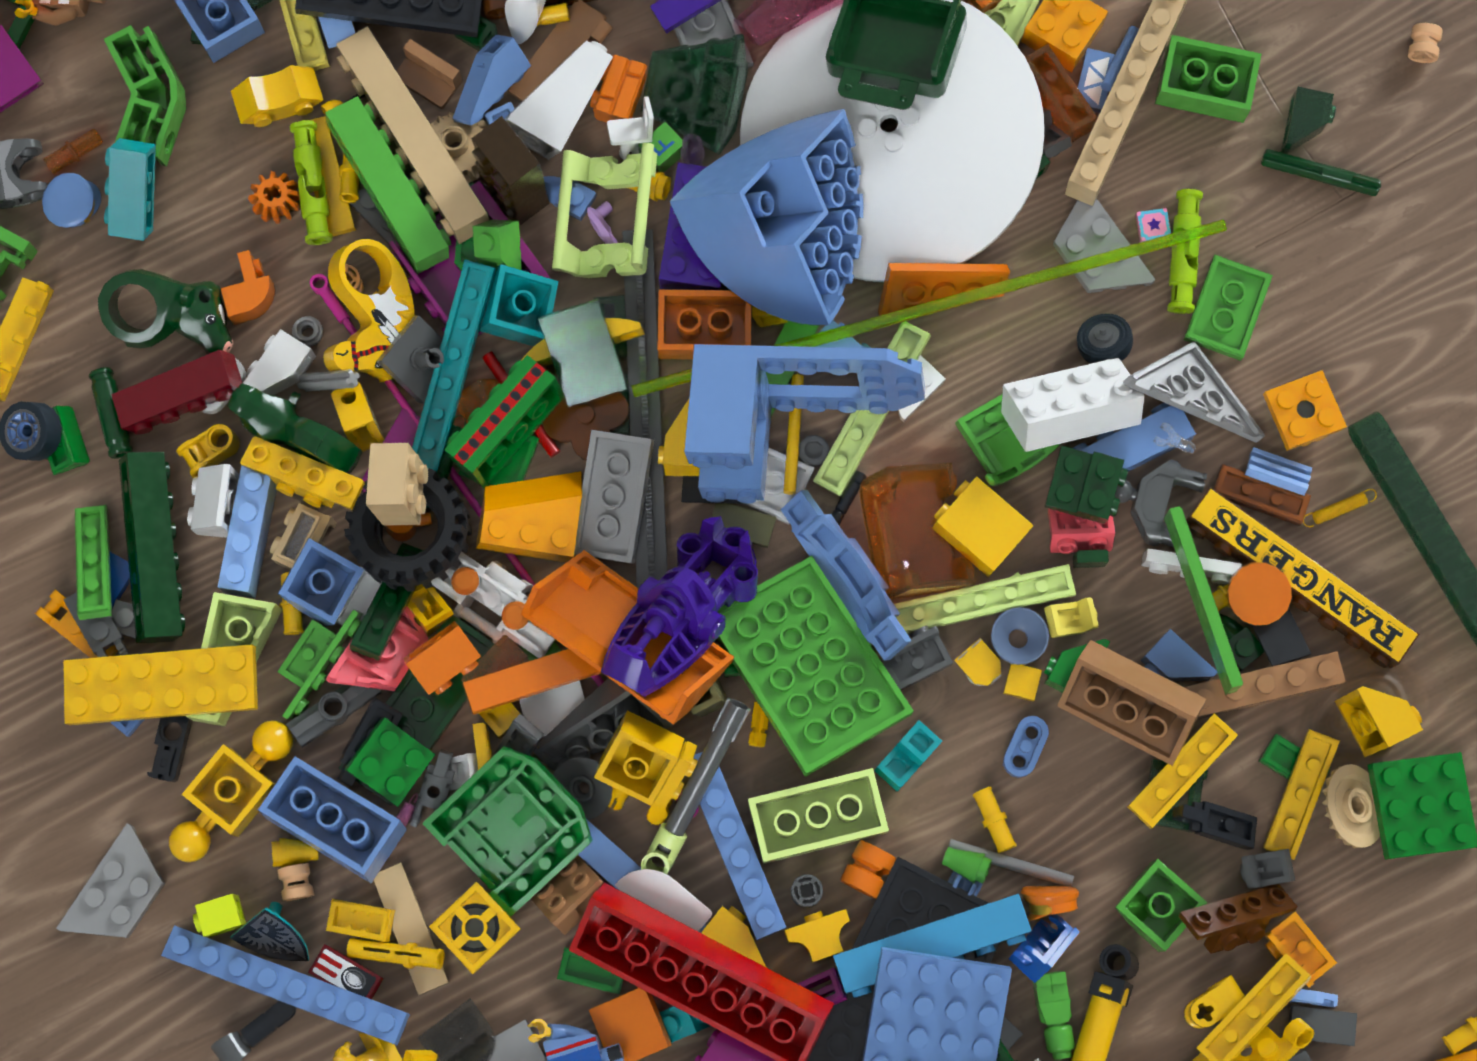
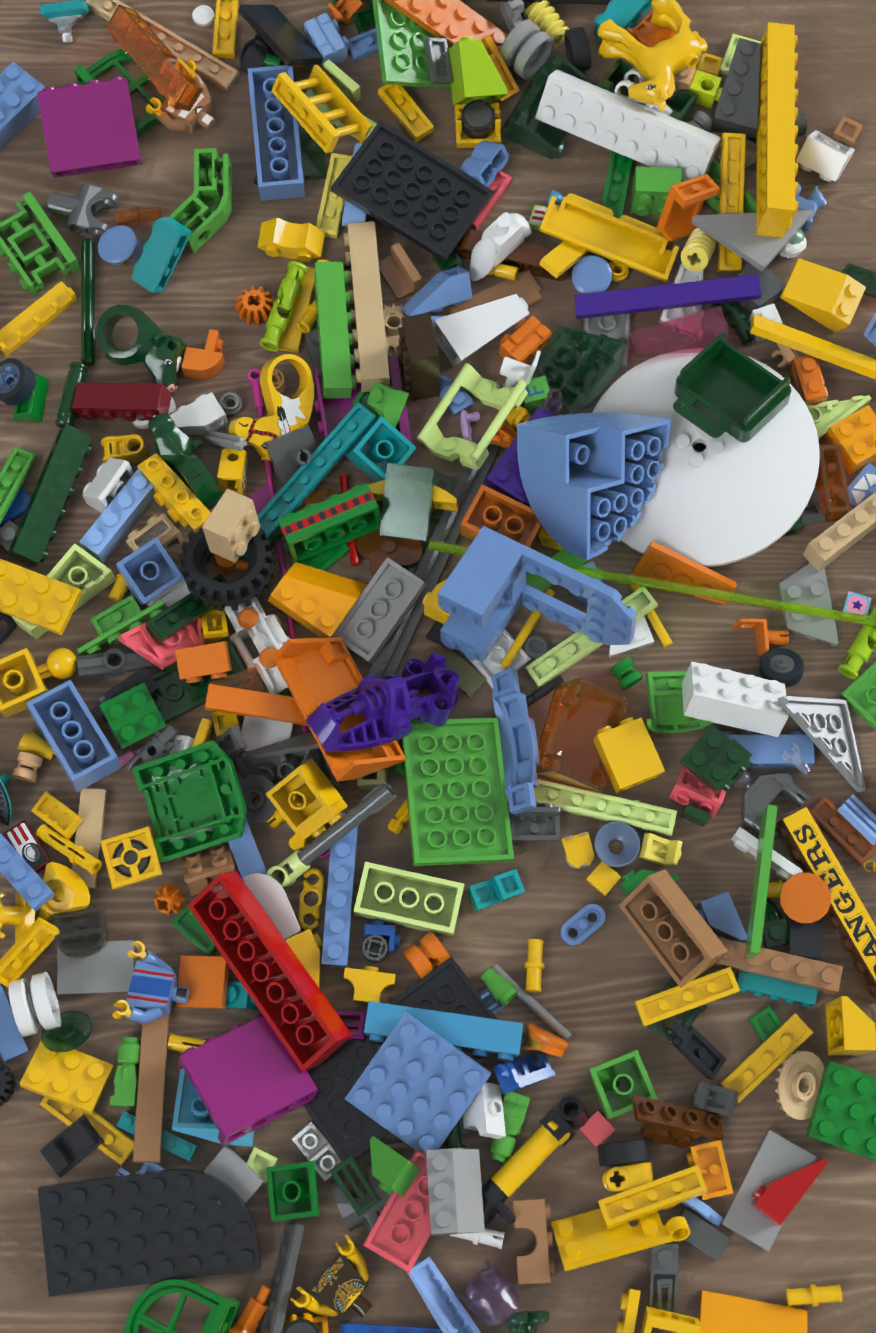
camera: 25 degrees right, 5 degrees down
(68, 287) = (87, 302): none -> dark green axle
(421, 999) = (69, 891): none -> yellow hat
(542, 952) = (169, 899): none -> orange gear
(657, 217) = (504, 436): none -> orange tile
(703, 886) = (317, 888): none -> yellow piece
(799, 866) = (389, 932): none -> blue bracket
(926, 429) = (626, 673): none -> green wheel
(939, 357) = (657, 625): none -> yellow bar
(1026, 1013) = (486, 1112): none -> white brick
(1066, 312) = (763, 636): none -> orange bracket
(1154, 967) = (597, 1129): none -> coral tile
(1196, 980) = (623, 1152): none -> black tyre
(1275, 712) = (776, 989): none -> teal piece
(1372, 939) = (773, 1159): none -> light grey tile
(1392, 935) = (782, 1194): none -> red slope

